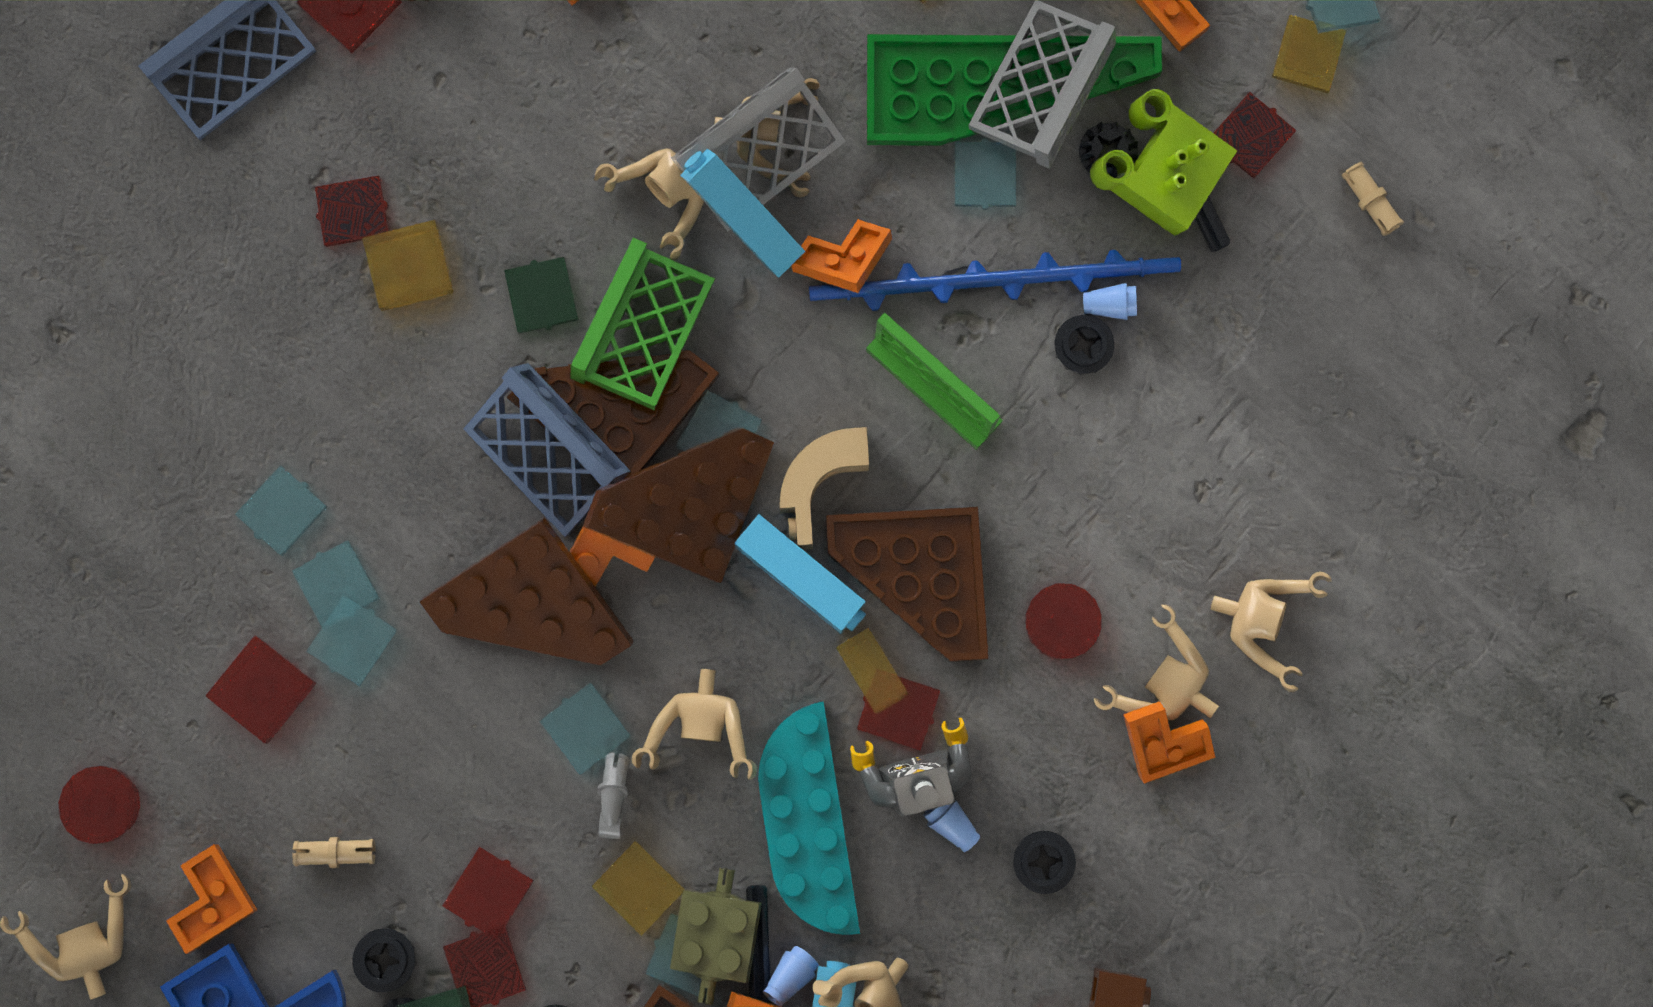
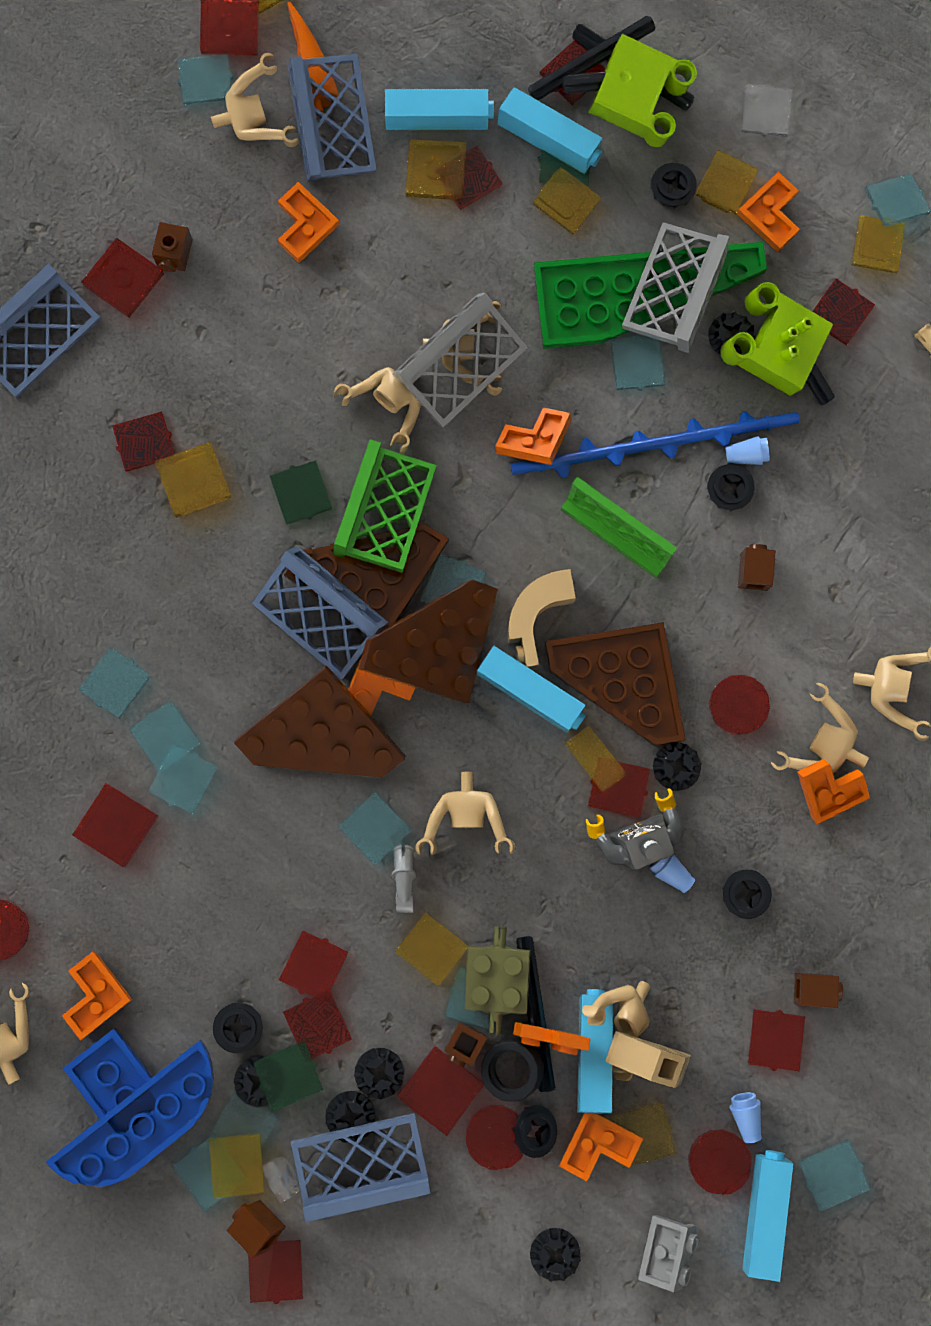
camera: 10 degrees left, 0 degrees up
(334, 852) = (188, 947): tan pin -> none
(741, 211) = (453, 410): medium azure brick -> none
(791, 975) = (560, 1004): light blue cone -> none
(806, 823) = (557, 883): teal plate -> none
(957, 696) = (663, 770): none -> black gear
(1104, 450) = (756, 568): none -> reddish brown brick

